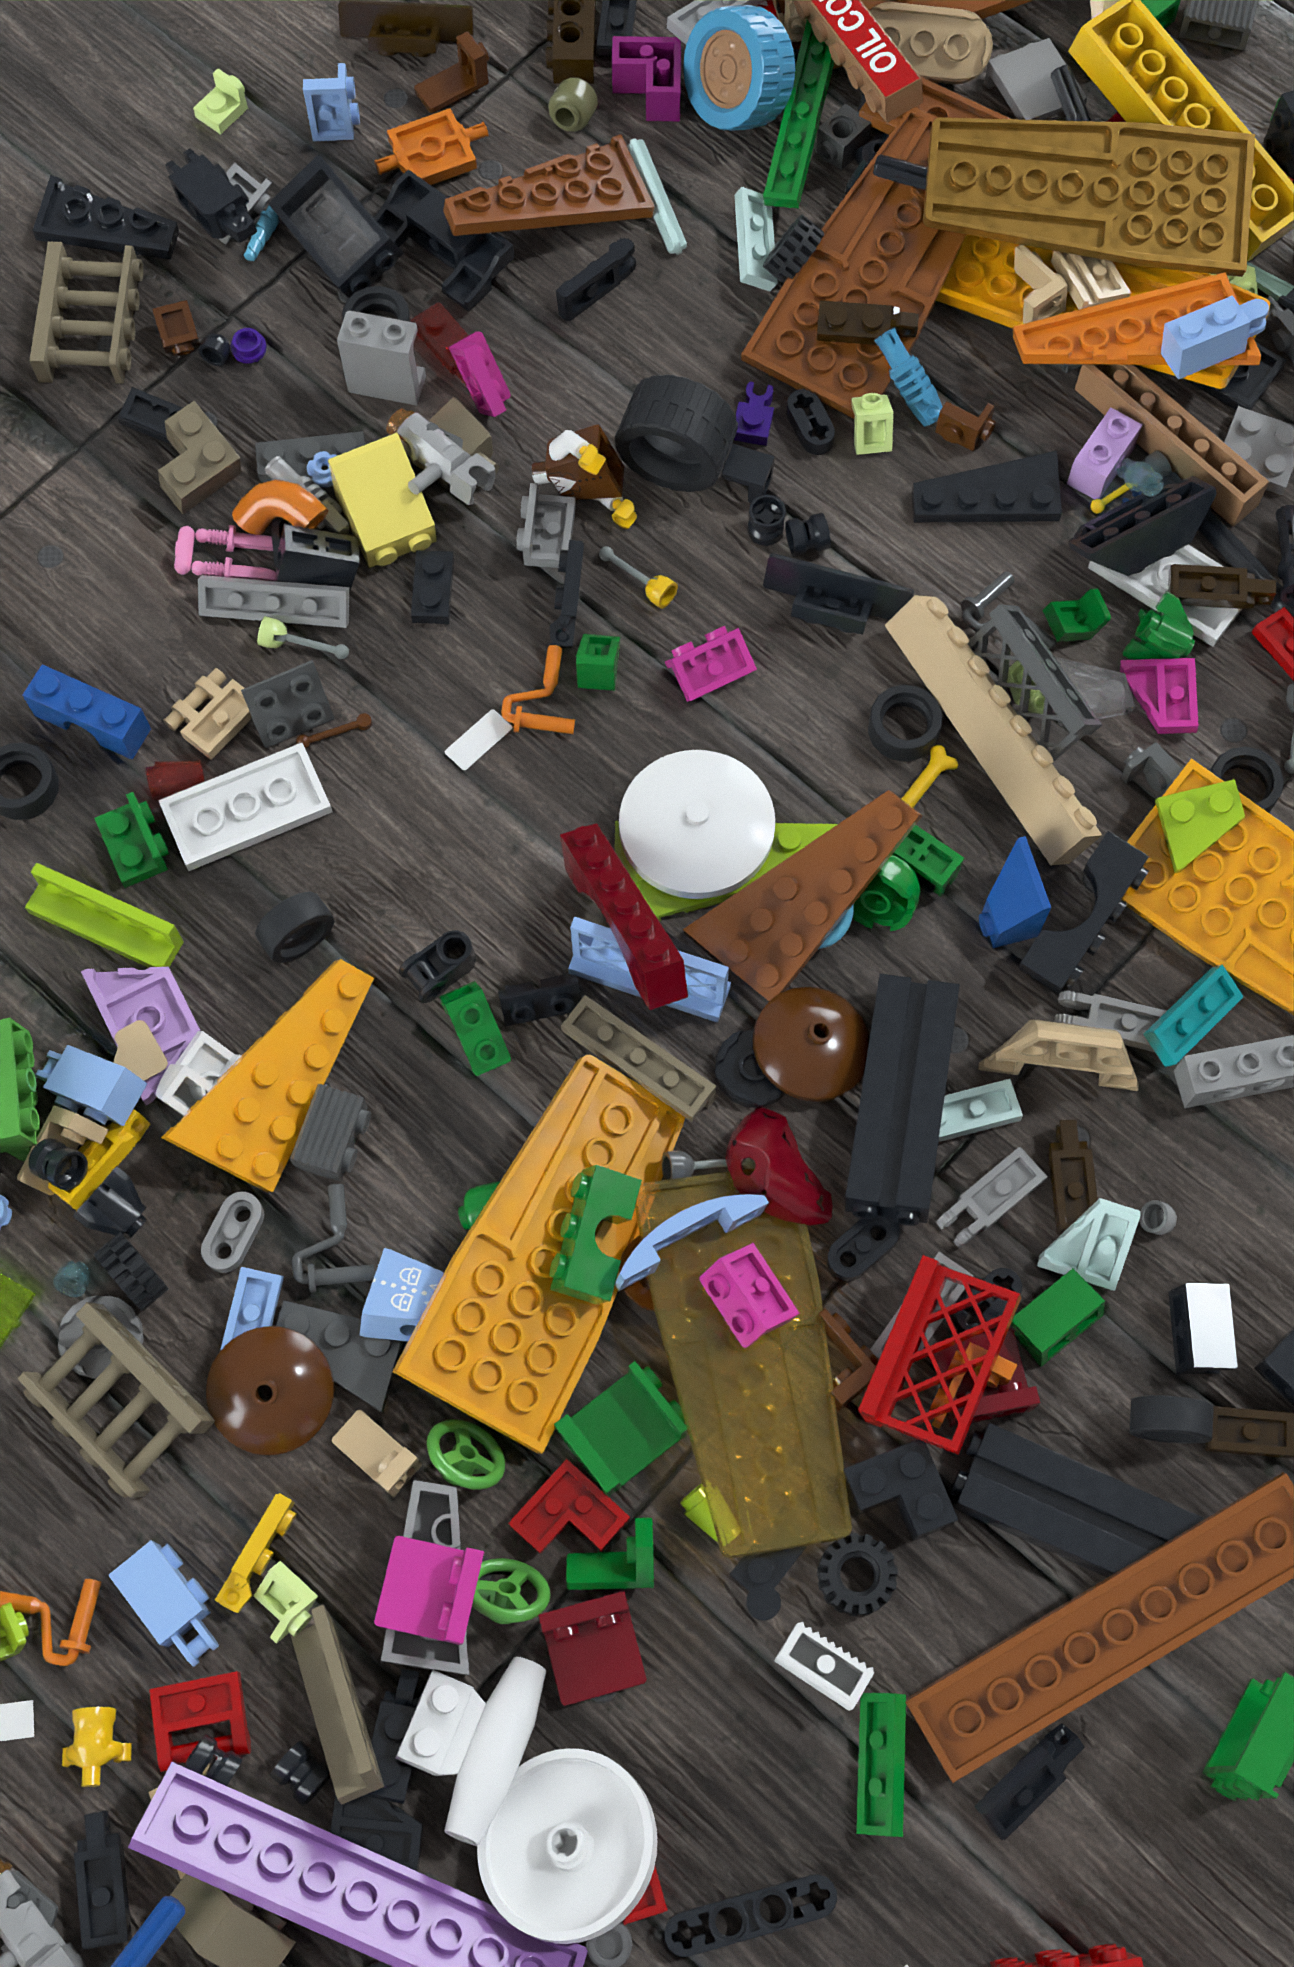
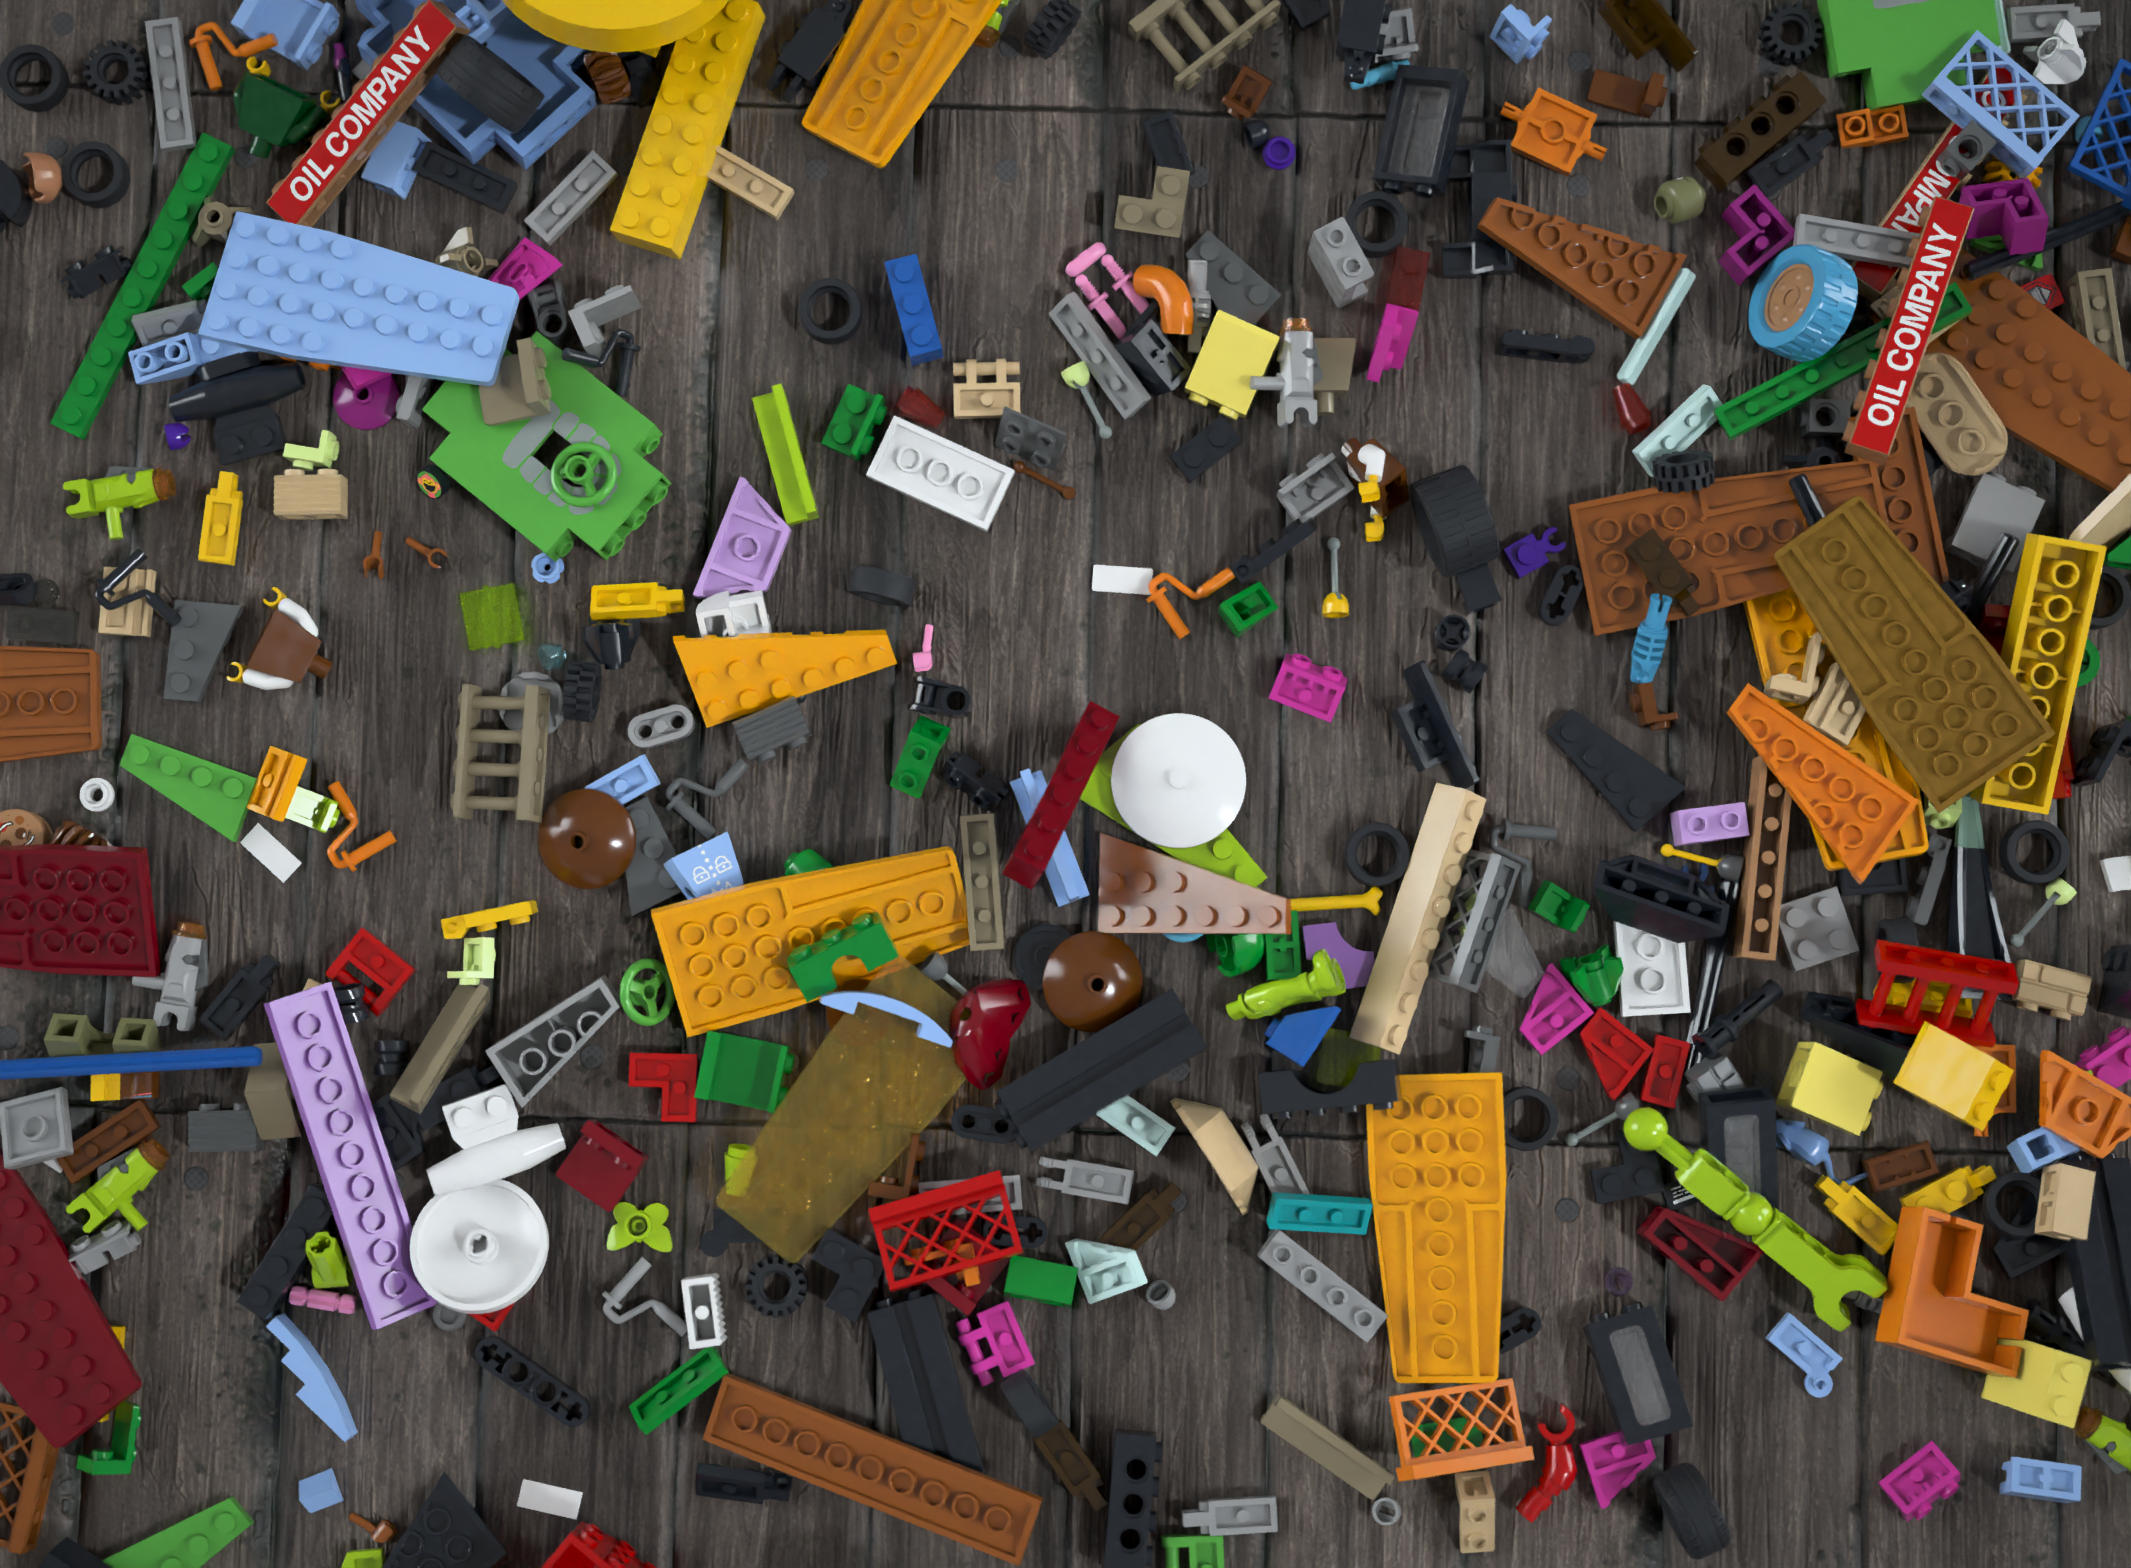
camera: 50 degrees right, 15 degrees up
(58, 1164) = (606, 578): black wheel -> none
(67, 1128) = (623, 567): tan bracket -> none
(91, 1084) = (673, 555): light blue brick -> none
(94, 1743) = (306, 923): yellow piece -> none
(139, 1050) = (720, 562): tan sticker -> none
(165, 1599) = (417, 890): light blue brick -> none
(314, 466) = (1229, 290): light blue plate -> none
(376, 1452) = (605, 936): tan bracket -> none
(392, 954) = (923, 660): none -> bright pink hand
(429, 1589) = (545, 1045): dark pink bracket -> none
(503, 1597) = (583, 1089): bright green piece -> none
(615, 1569) = (657, 1138): green bracket -> none
(684, 1665) = (640, 1226): none -> lime animal
(706, 259) = (1631, 410): none -> clear red cone
(732, 1732) = (625, 1286): none -> light grey piece
(748, 1294) = (884, 1083): dark pink bracket -> none
(872, 424) = (1593, 641): yellowish green bracket -> none
(960, 895) = (1275, 995): none -> lime piece
(984, 820) = (1353, 962): none -> medium lavender tile
(1068, 892) = (1341, 1057): none -> clear neon green piece
(1088, 1397) = (1004, 1338): none -> dark pink plate
(1140, 477) = (1702, 867): clear light blue axle -> none
(1197, 819) = (1459, 1112): lime wing -> none
(1202, 1328) = (1109, 1378): hinge -> none
(1211, 334) = (1844, 837): light blue brick -> none
(1219, 587) = (1660, 987): dark brown hinge -> none
(1241, 673) = (1613, 1051): none -> red wing

